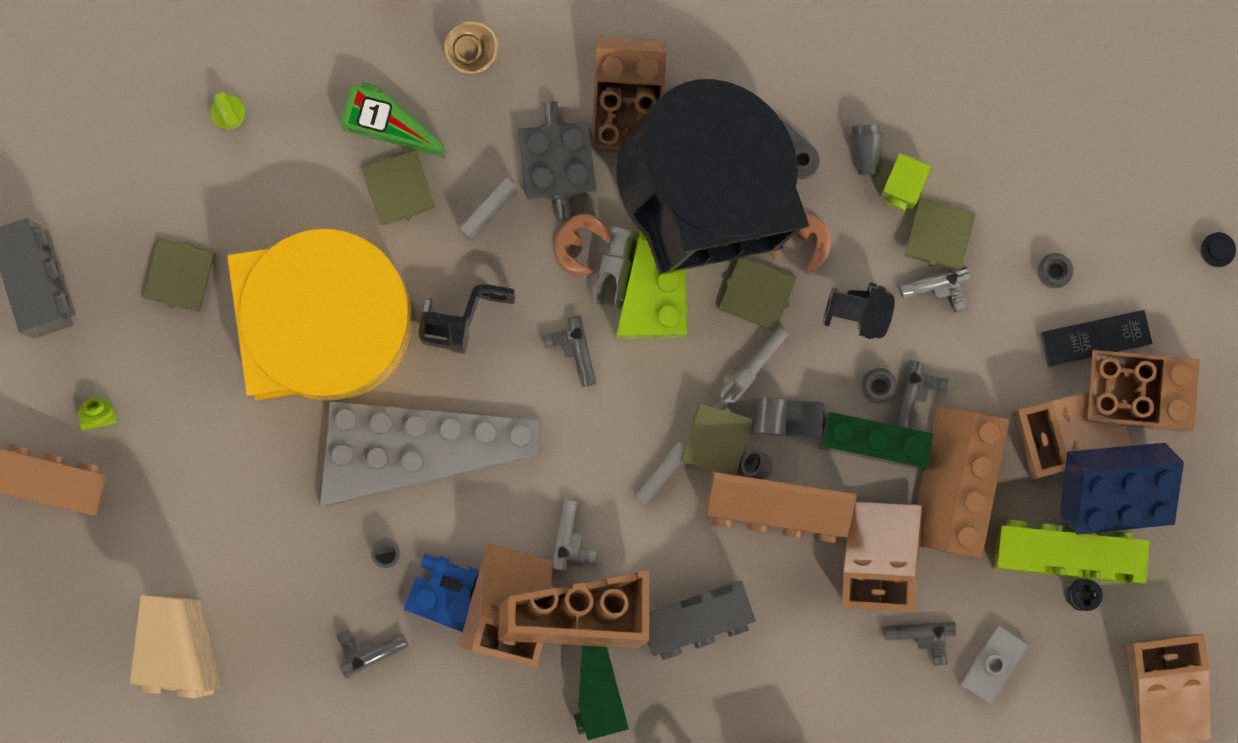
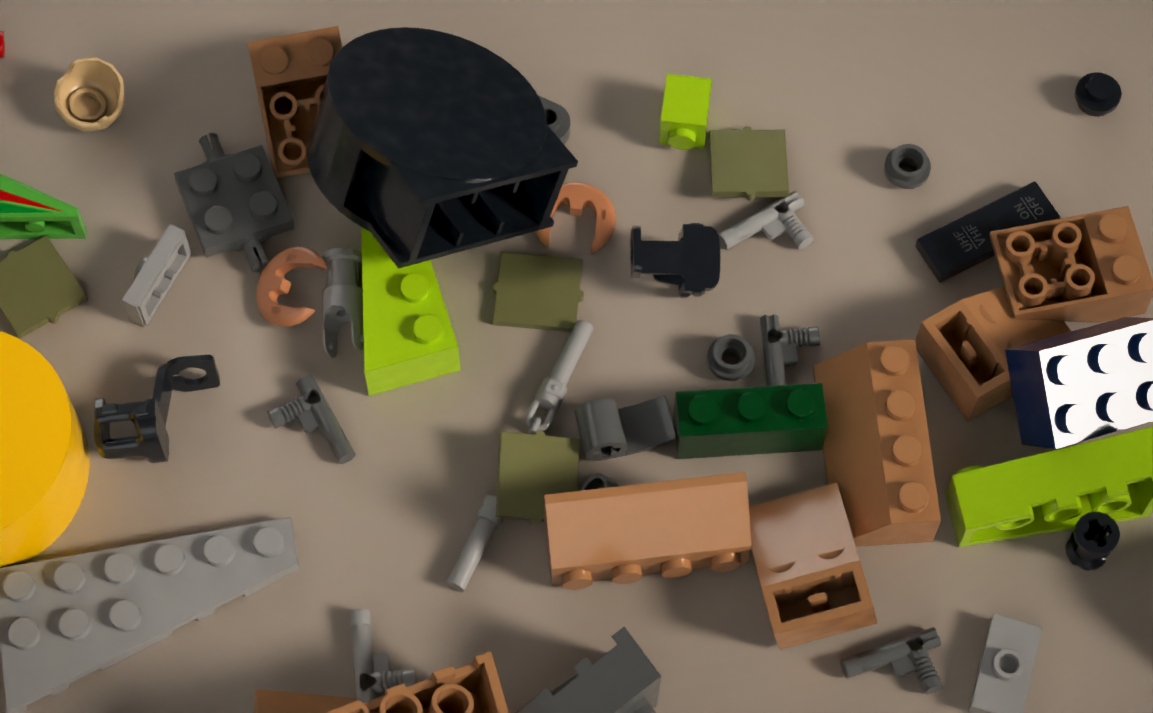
camera: 15 degrees left, 20 degrees down
(867, 146) = (623, 84): dark grey cone -> none

